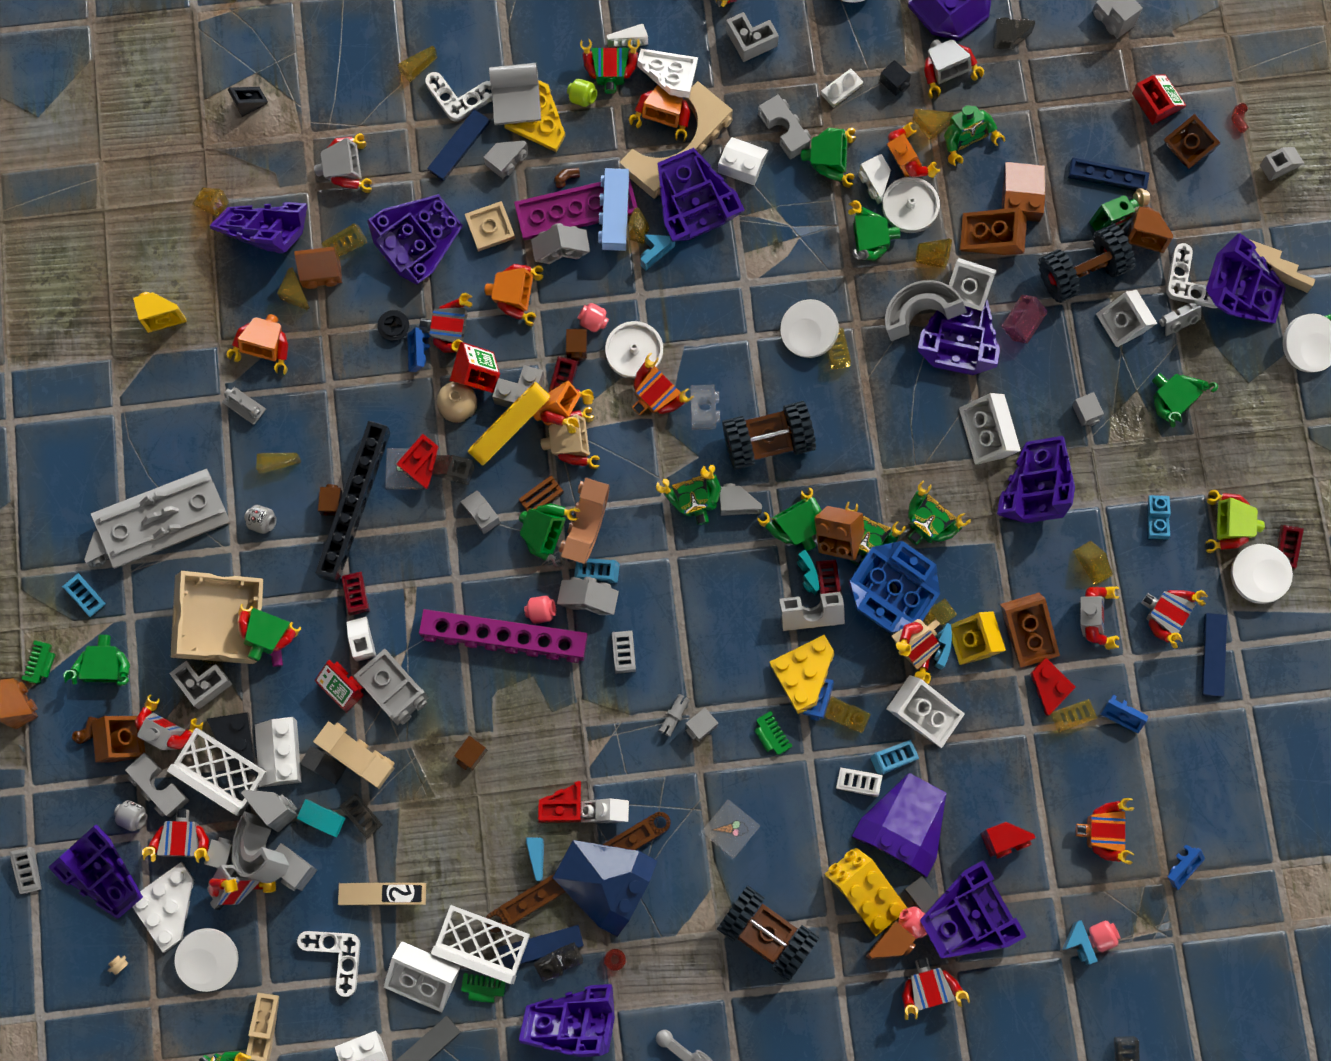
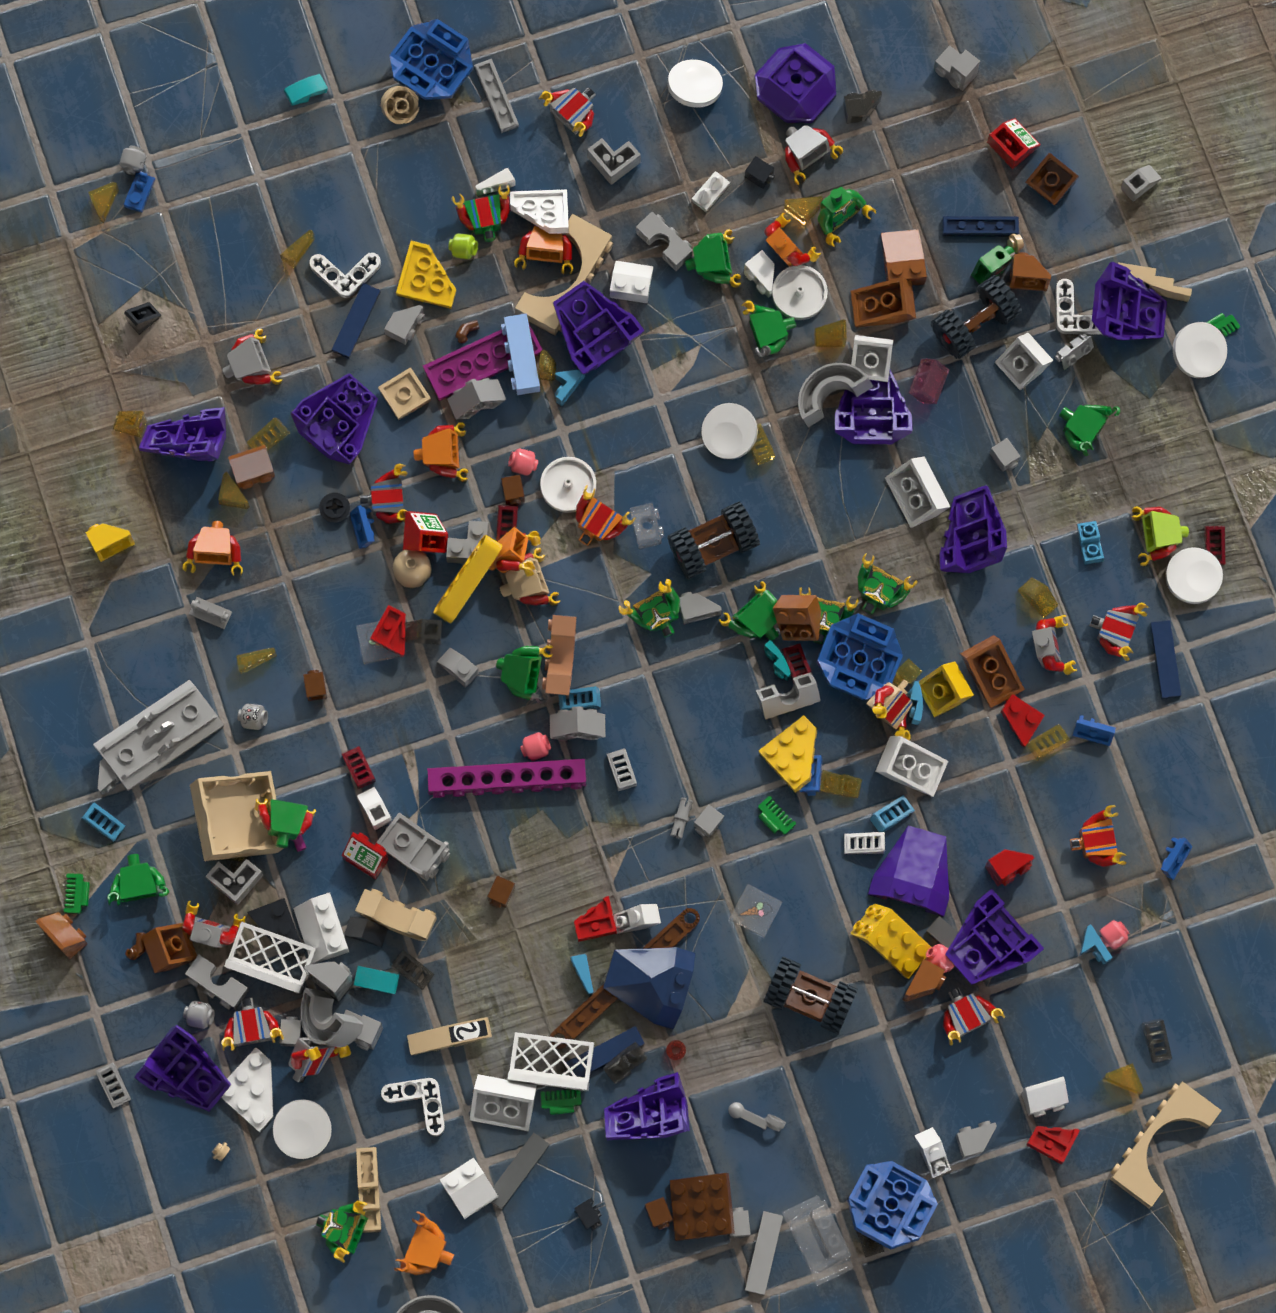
camera: 15 degrees left, 0 degrees up
(353, 502) = (337, 682): black brick -> none
(515, 93) = (400, 261): light grey door -> none
(555, 485) = (522, 627): dark orange tile -> none
(1238, 116) = (1091, 145): clear red arm -> none

